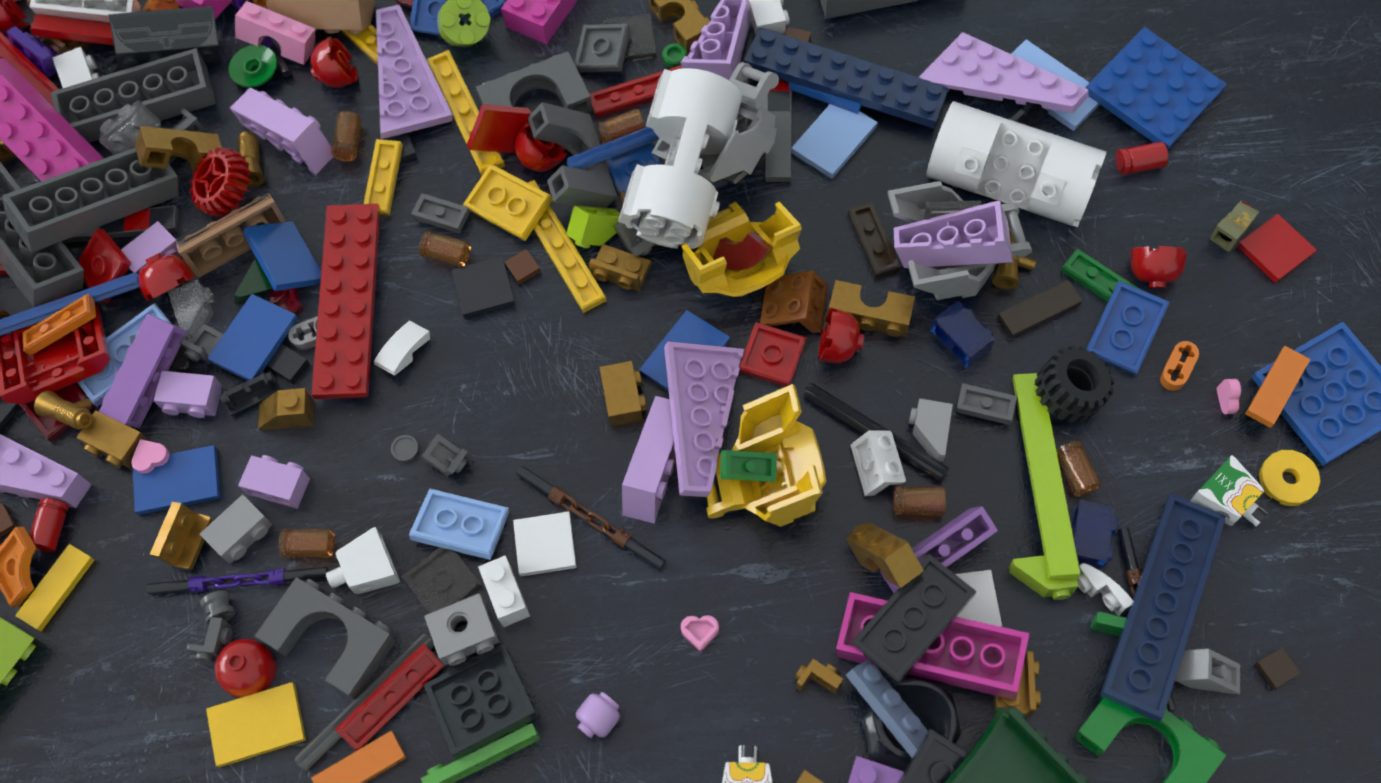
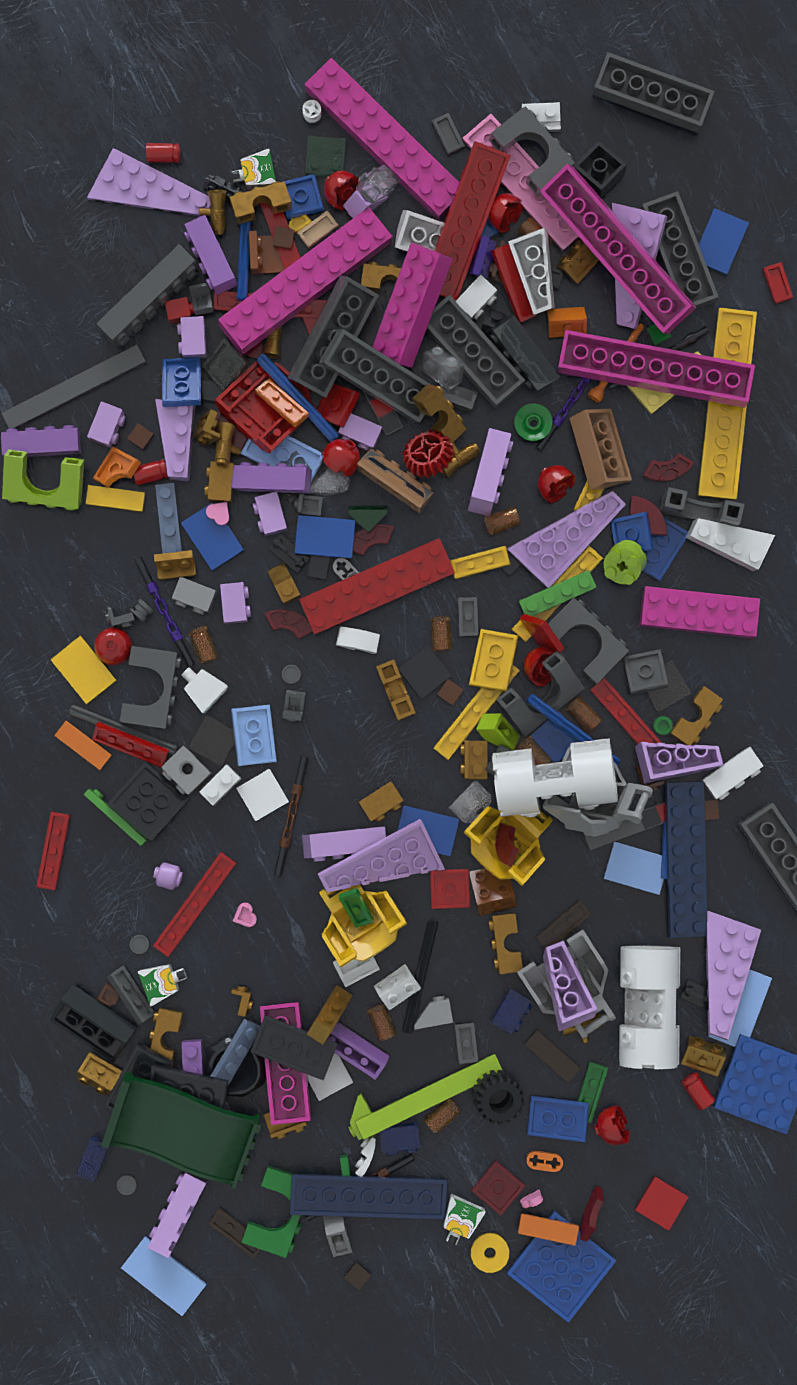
camera: 65 degrees right, 20 degrees up
(35, 426) = (203, 430): none -> pearl gold bracket
(115, 525) = (168, 518): none -> sand blue plate
(256, 23) = (565, 439): bright pink arch -> none
(283, 255) = (391, 527): blue tile -> none
(334, 426) = (290, 621): none -> dark red tile
(463, 104) = (558, 594): none -> bright green plate
(466, 323) = (395, 690): none -> pearl gold arch
(656, 697) = (194, 904): none -> red tile
(671, 286) = (470, 802): none -> clear brick
(831, 509) = (356, 970): none -> white plate
(839, 337) = (474, 931): red cylinder -> none
(1102, 132) = (704, 1056): none -> pearl gold bracket
(1199, 436) = (498, 1187): none -> dark red tile
(1234, 225) = (667, 1170): olive leg -> none
(1268, 330) = (590, 1214): none -> dark red tile

